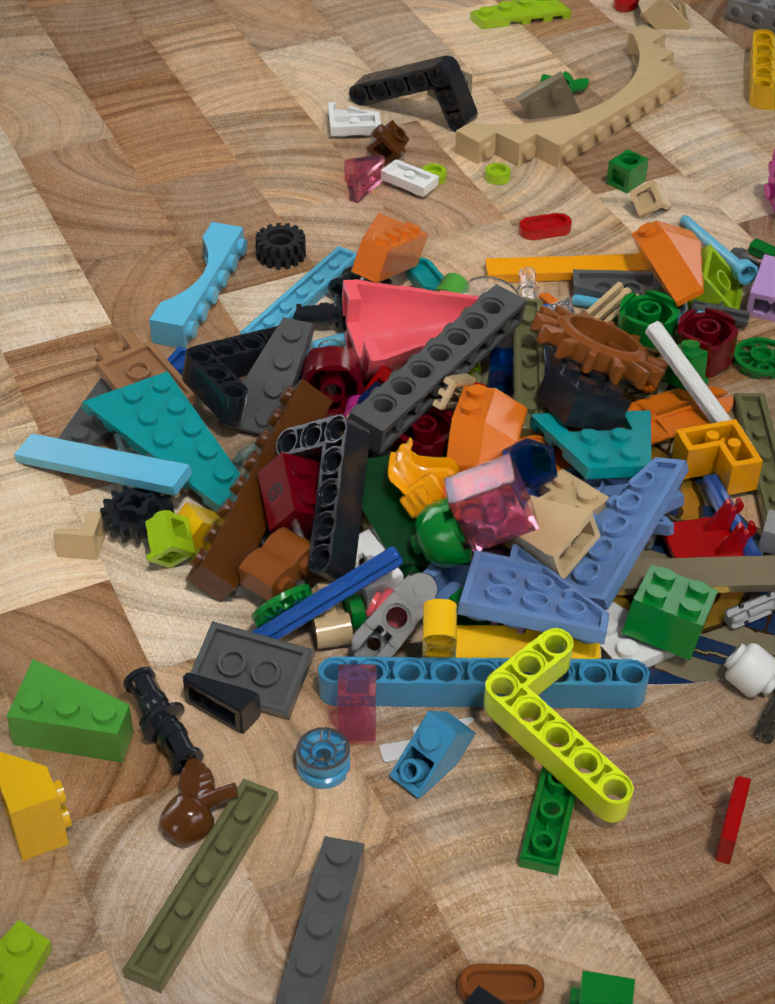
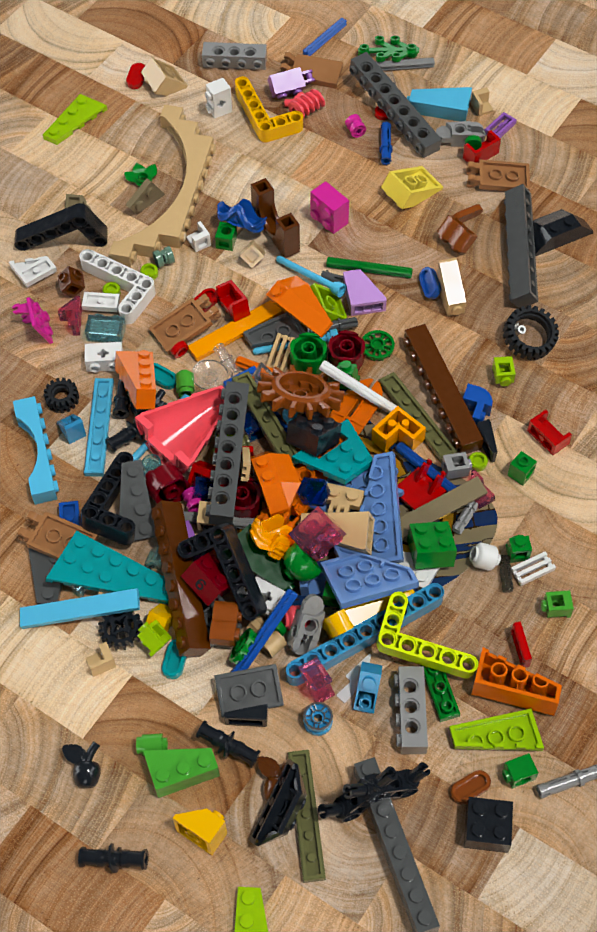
camera: 30 degrees left, 15 degrees up
(60, 660) = (151, 742): none -> bright green brick
(168, 837) = (282, 806): none -> black wedge
(174, 590) = (173, 663): none -> teal tile
(264, 281) = (72, 428): none -> dark azure slope
(313, 159) = (36, 316): none -> dark pink plate
(321, 875) = (374, 788): none -> black pin
(354, 222) = (101, 356): none -> white brick
(392, 201) = (105, 328): none -> clear light blue brick
(457, 868) = (414, 678): none -> light grey brick
(467, 176) = (140, 286): none -> white beam
(472, 256) = (179, 349): none -> red tile
(501, 234) = (184, 322): none -> medium nougat tile
(533, 162) = (163, 256): none -> sand green wheel
(583, 231) = (233, 300): none -> red panel
(590, 163) = (199, 239): none -> white panel
(613, 931) = (501, 732): none -> lime wing
(663, 151) = (241, 215): none -> blue piece
(678, 868) = (514, 685): none -> orange wedge
(704, 167) = (282, 230): none -> reddish brown arch
(720, 39) = (218, 98): none -> white brick

